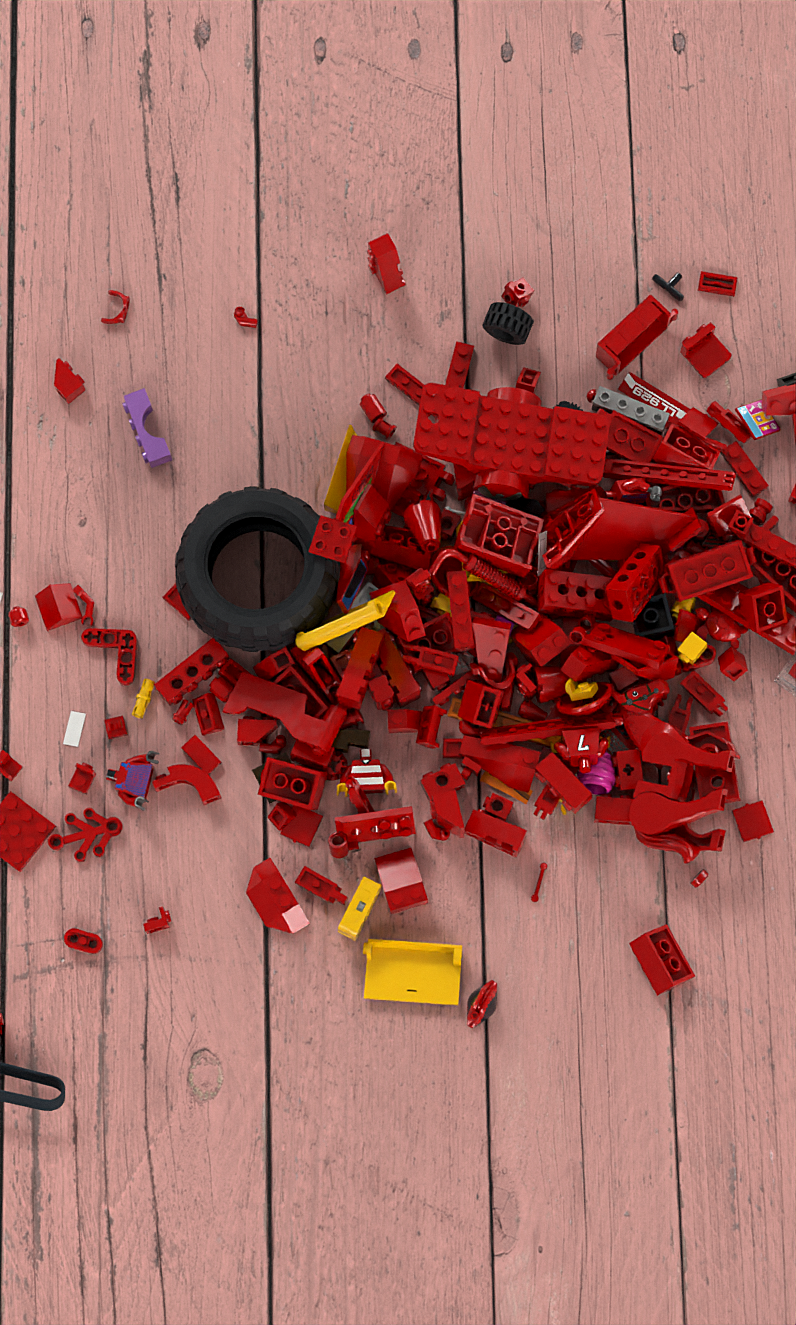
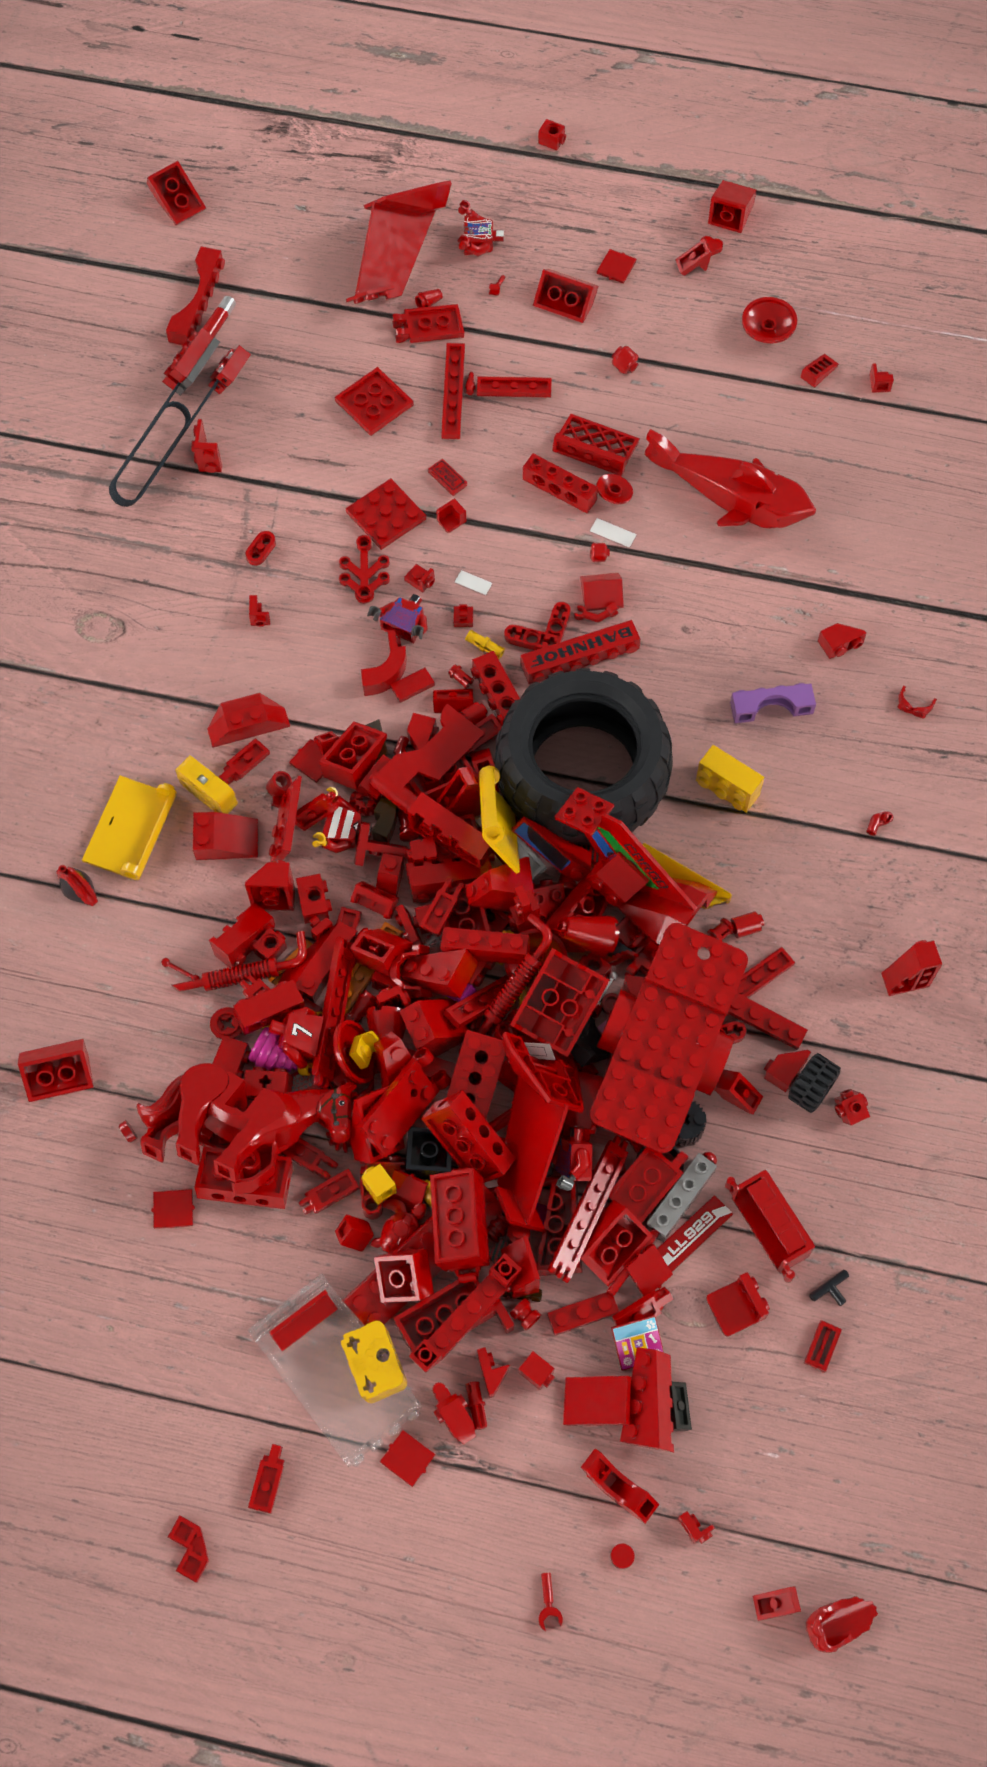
camera: 100 degrees right, 10 degrees down
(133, 609) = (580, 651): none -> red brick
(238, 447) = (729, 779): none -> yellow brick
(380, 746) = (374, 847): none -> red bracket
(496, 351) = (785, 1068): none -> red slope
(530, 820) = (234, 975): none -> red piece
(587, 821) = (216, 1026): none -> red gear

